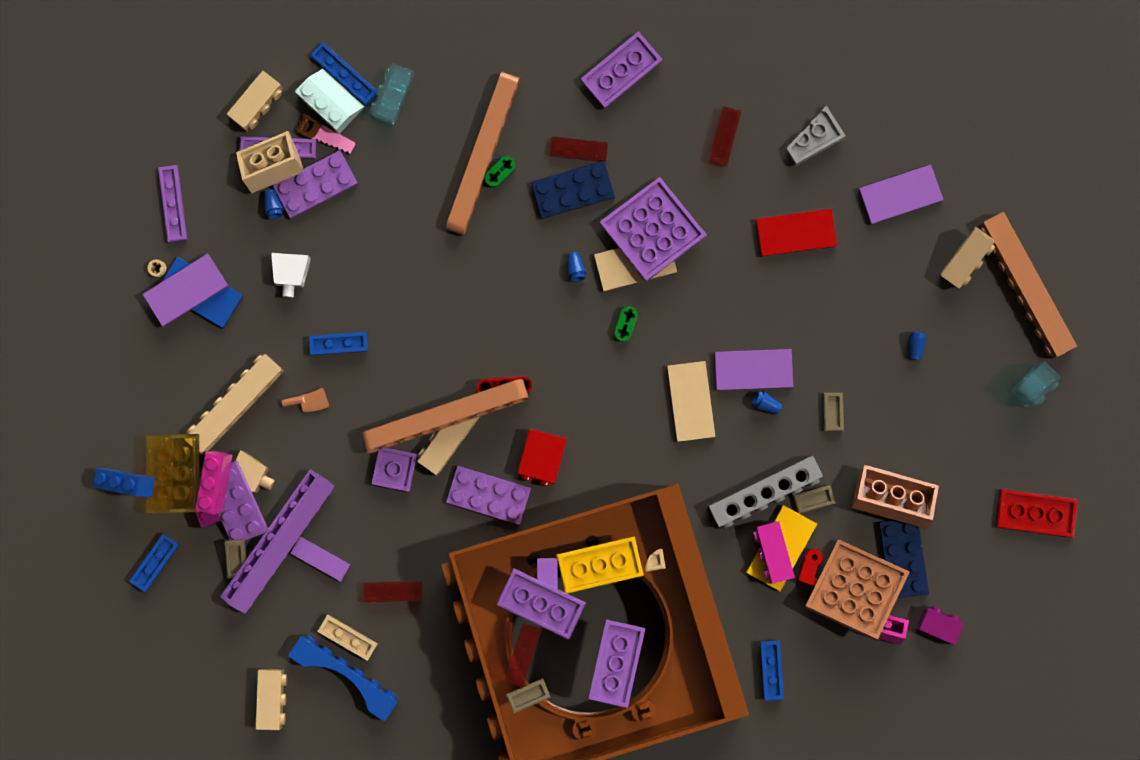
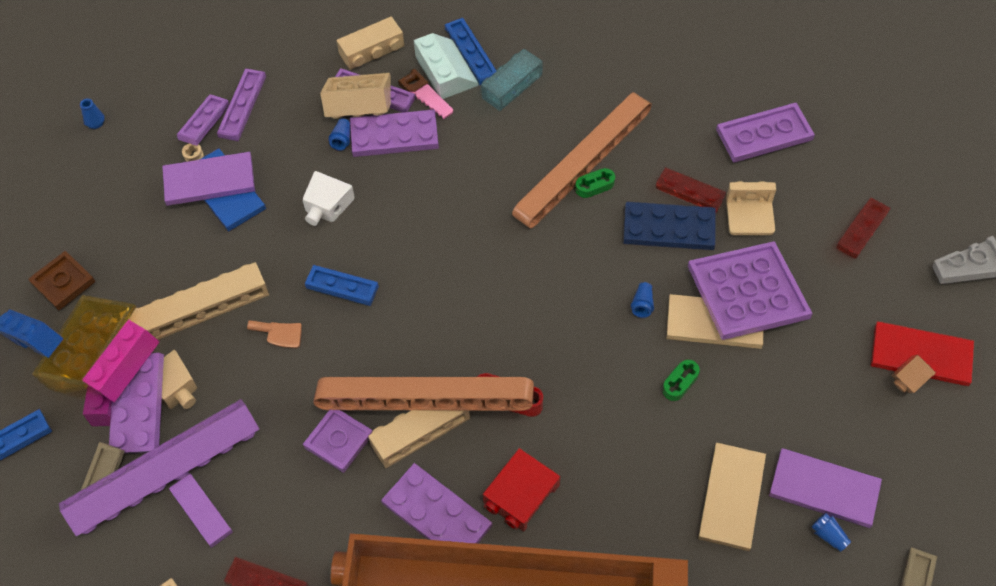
camera: 25 degrees right, 25 degrees down
(57, 267) = (91, 114): none -> blue cone
(116, 424) = (61, 280): none -> reddish brown plate
(149, 234) = (203, 120): none -> medium lavender tile
(632, 153) = (750, 208): none -> tan bracket
(793, 258) = (912, 374): none -> medium nougat brick

